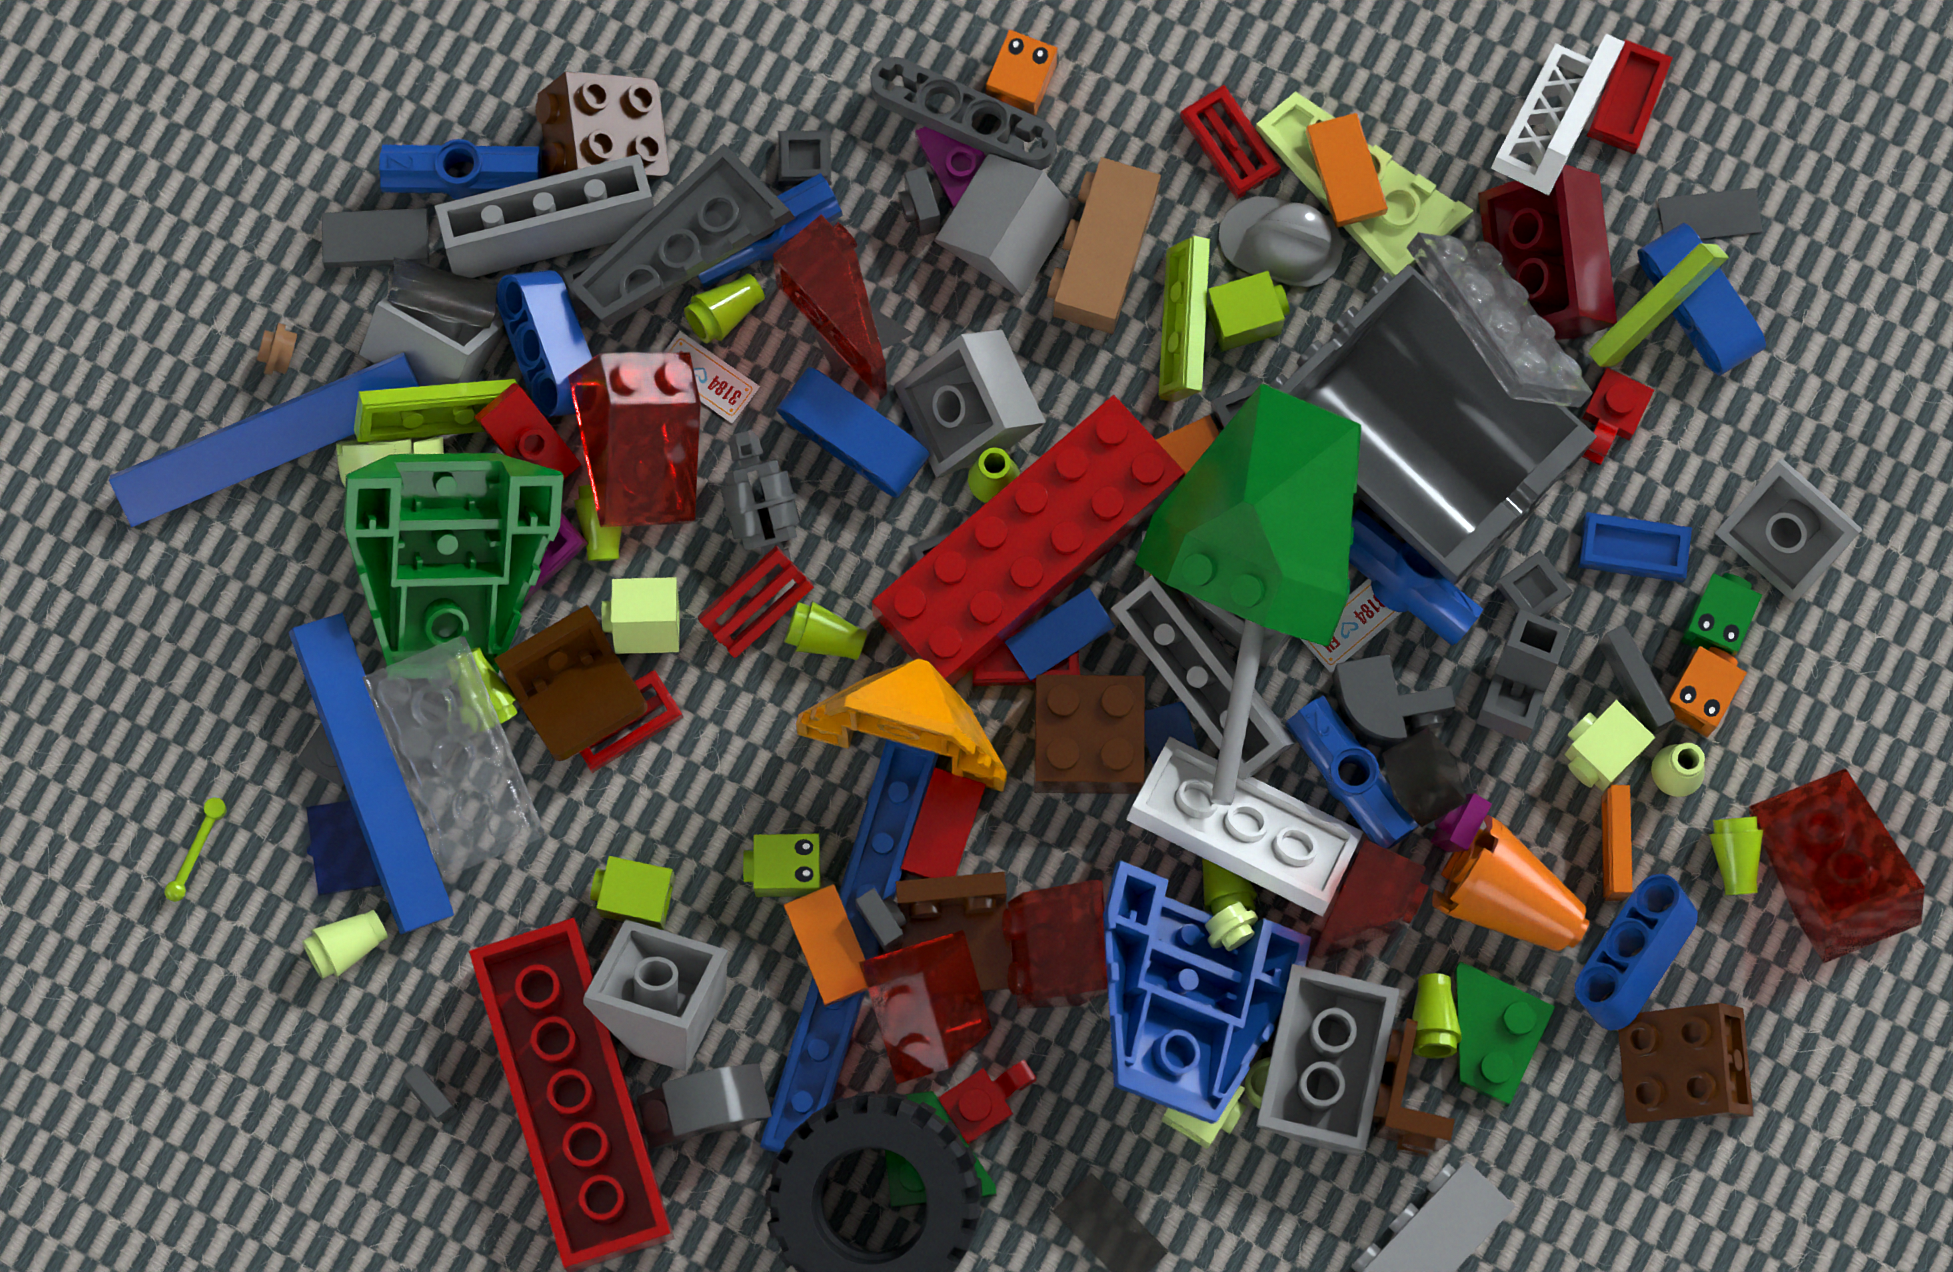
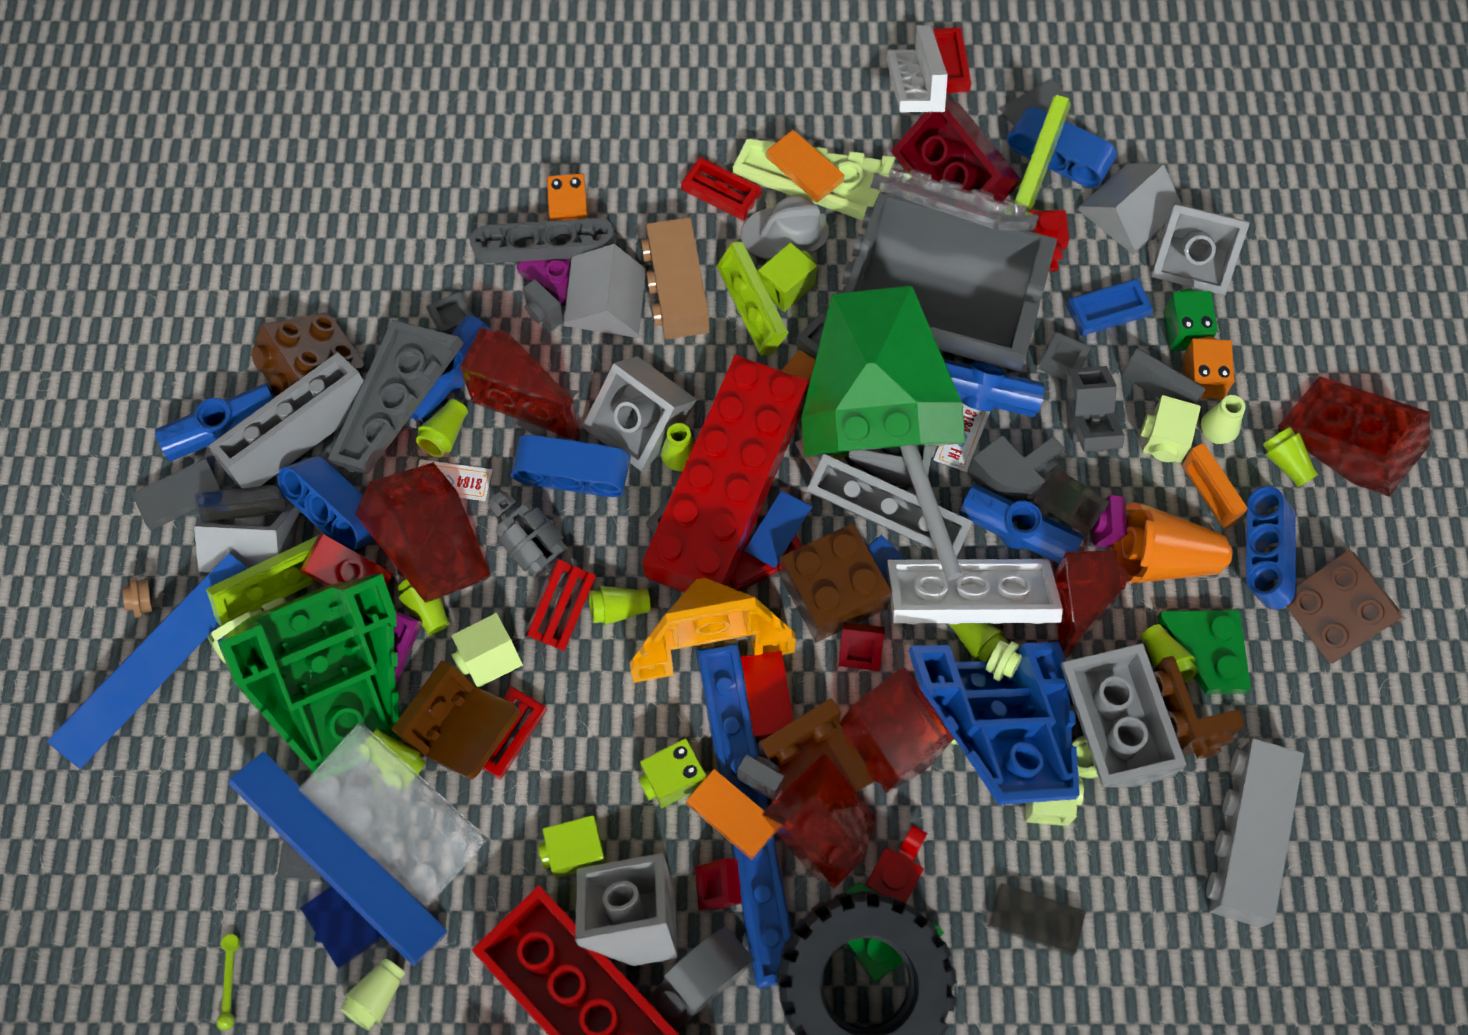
camera: 25 degrees left, 10 degrees down
(773, 1014) = (718, 884): none -> dark red plate
(1080, 825) = (861, 646): none -> dark red plate
(1748, 423) = (1133, 204): none -> light grey slope

